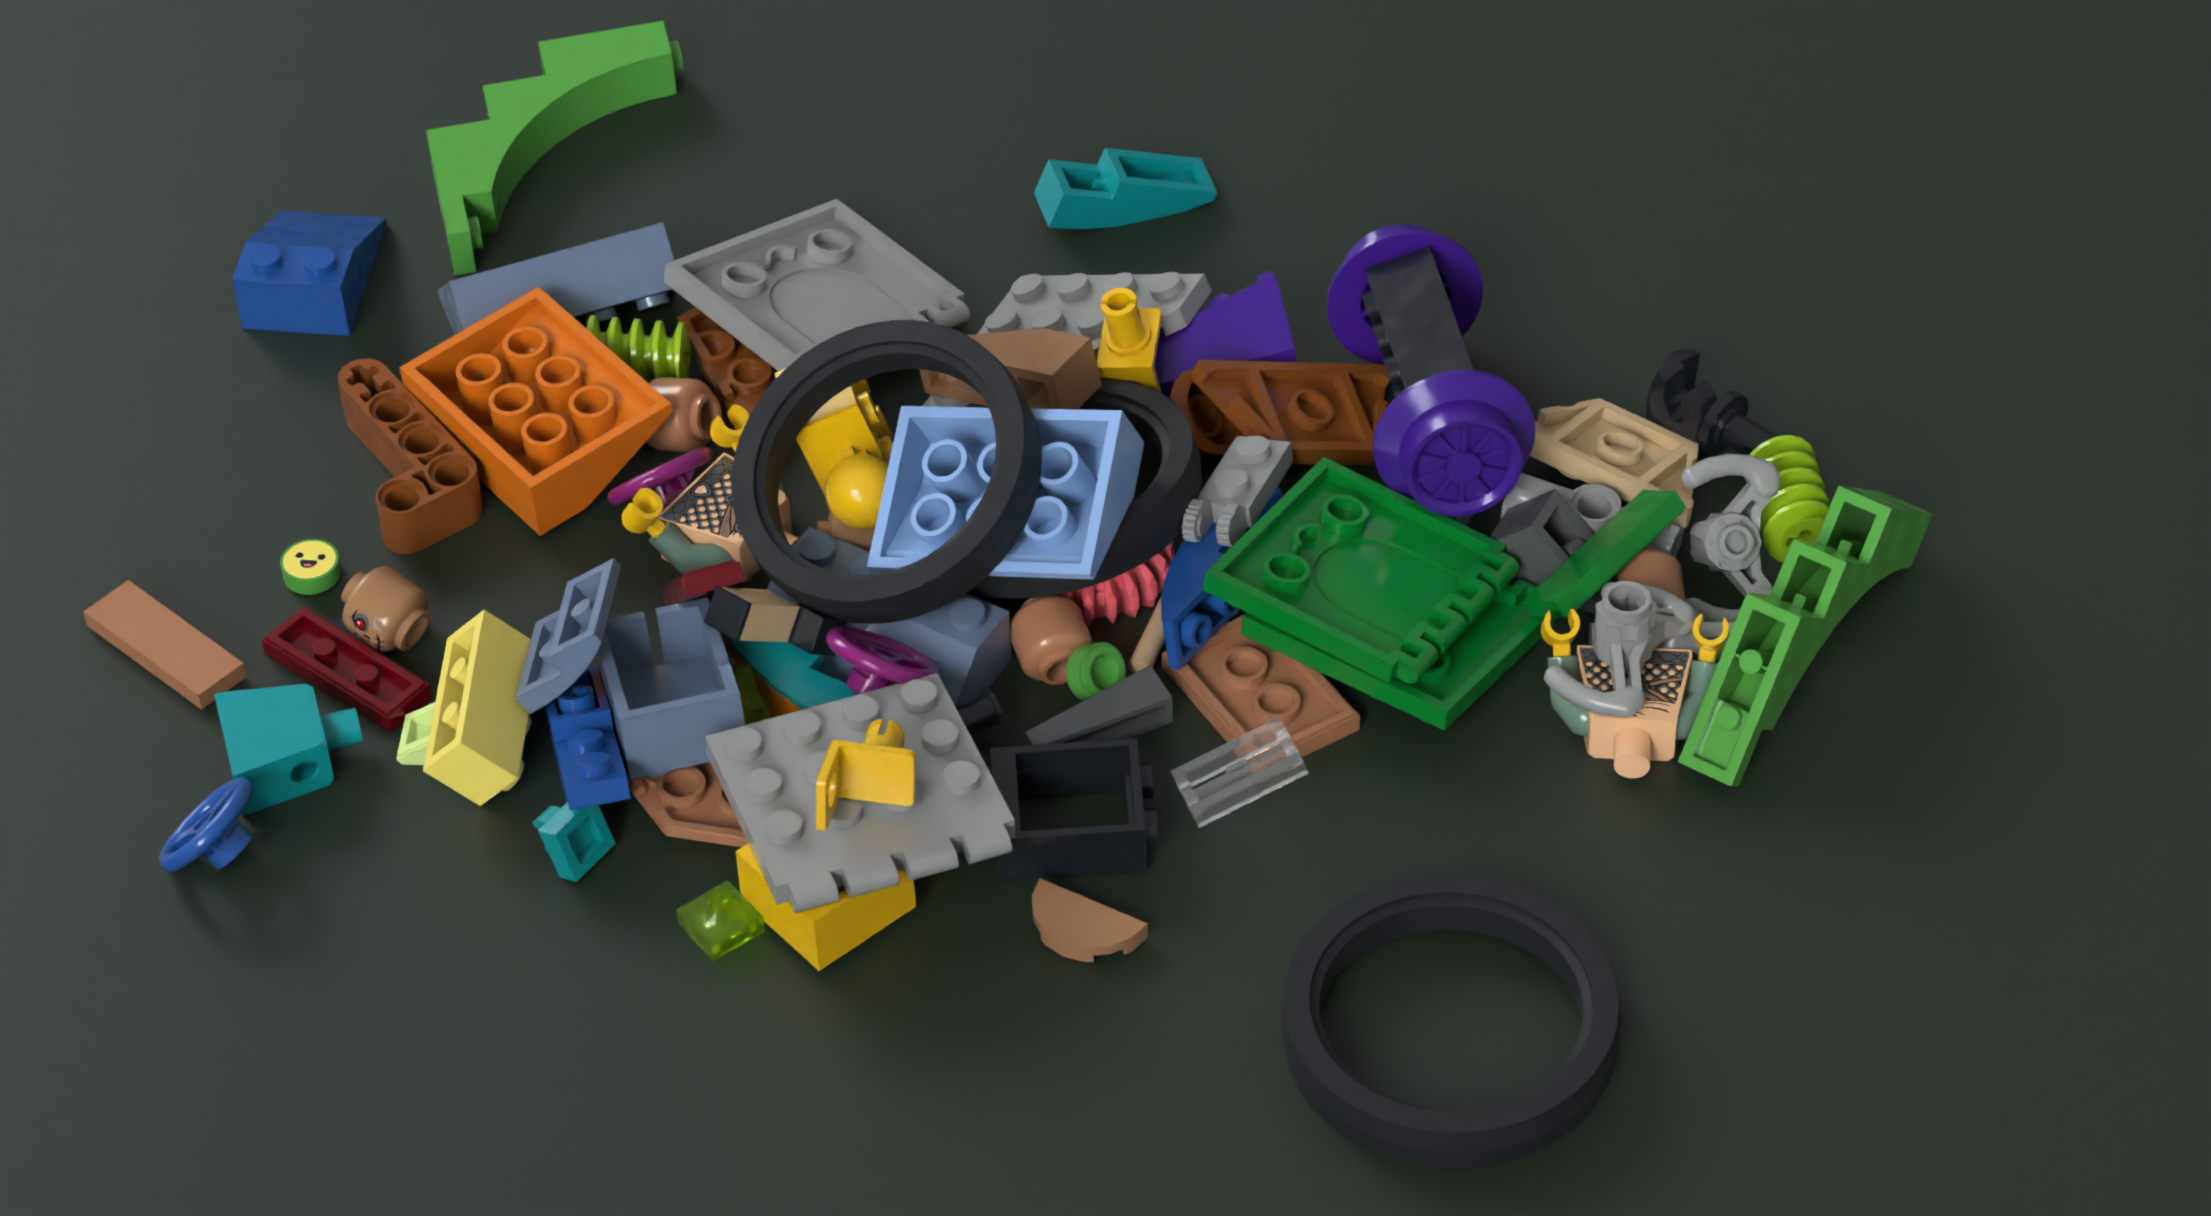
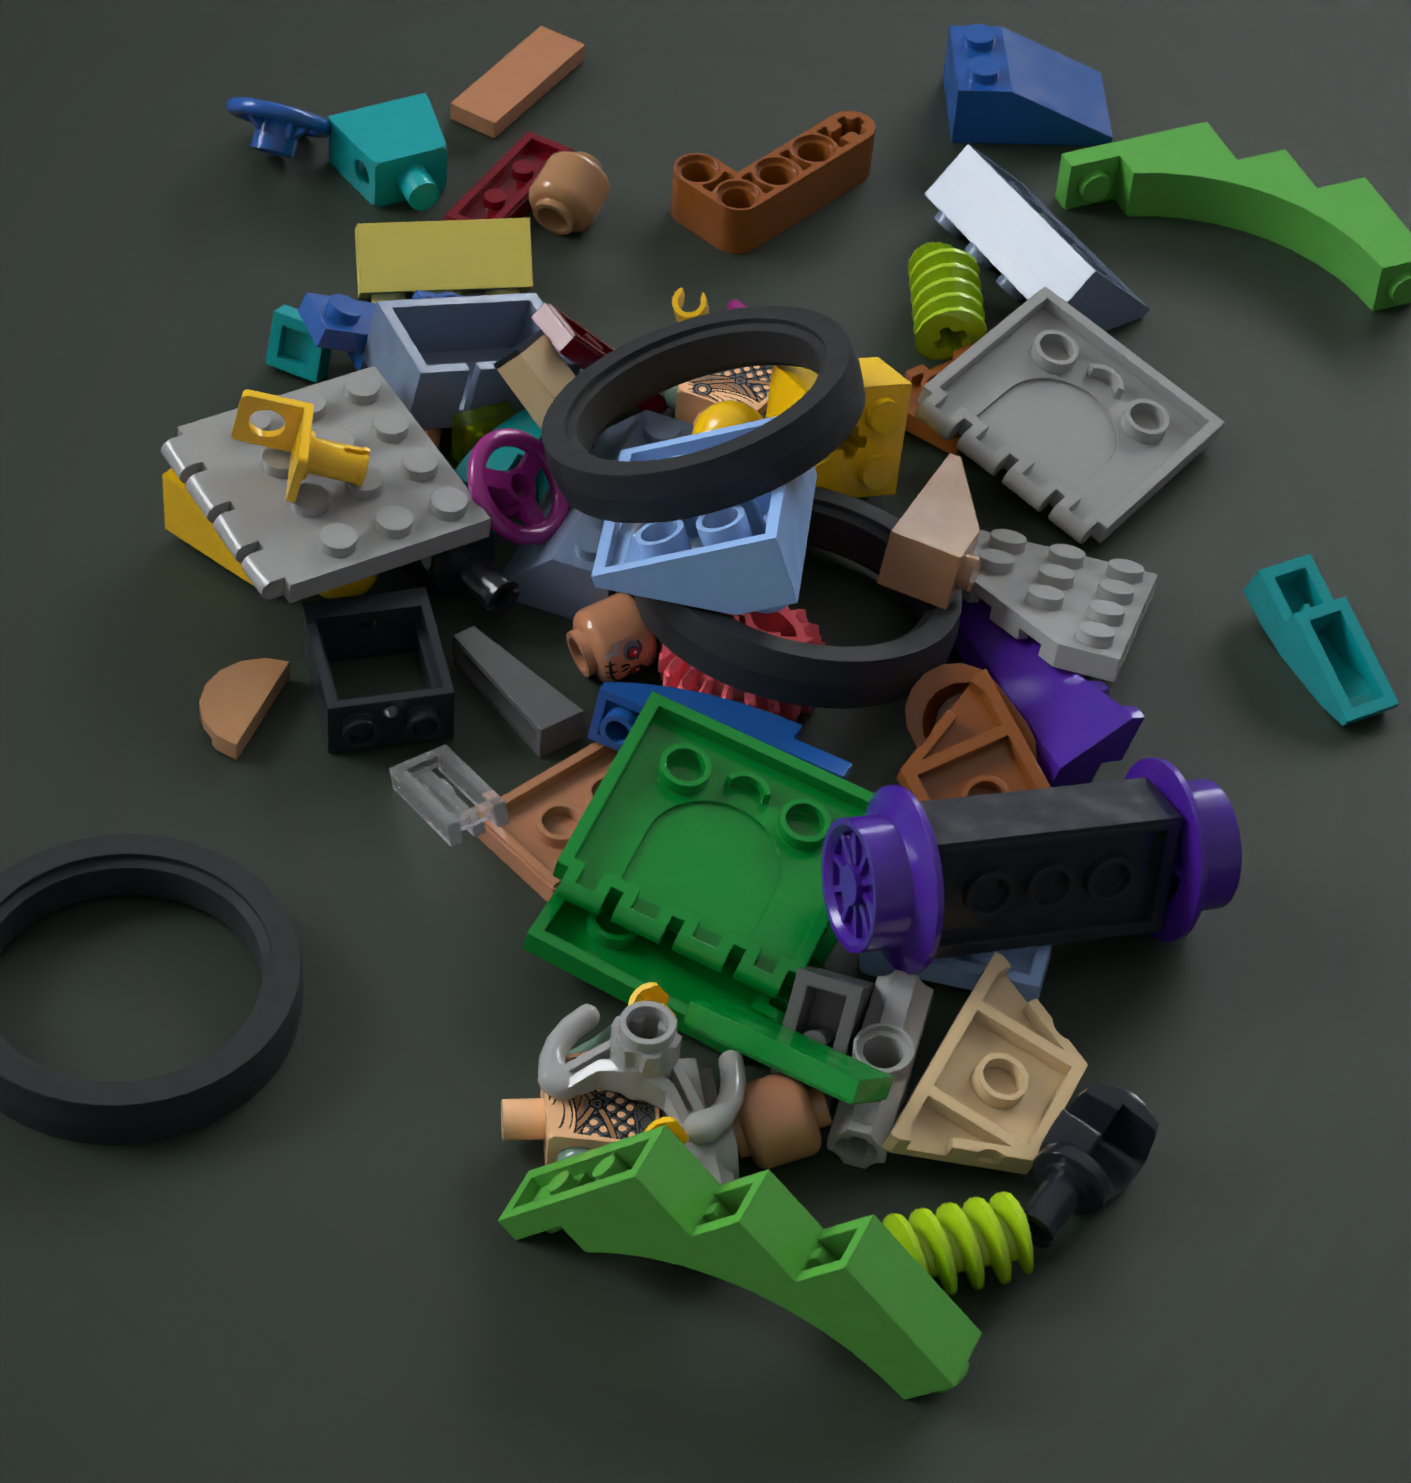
camera: 75 degrees right, 0 degrees up
(310, 566) = (631, 151): tile -> none
(537, 407) = (831, 230): orange slope -> none
(568, 638) = (506, 273): sand blue slope -> none
(692, 415) = (880, 333): nougat head -> none
(1094, 668) = (575, 672): bright green tile -> none
(1128, 339) = (1003, 607): yellow bracket -> none
(1238, 489) = (818, 733): light grey hinge -> none
(1728, 539) = (863, 1181): light grey piece -> none

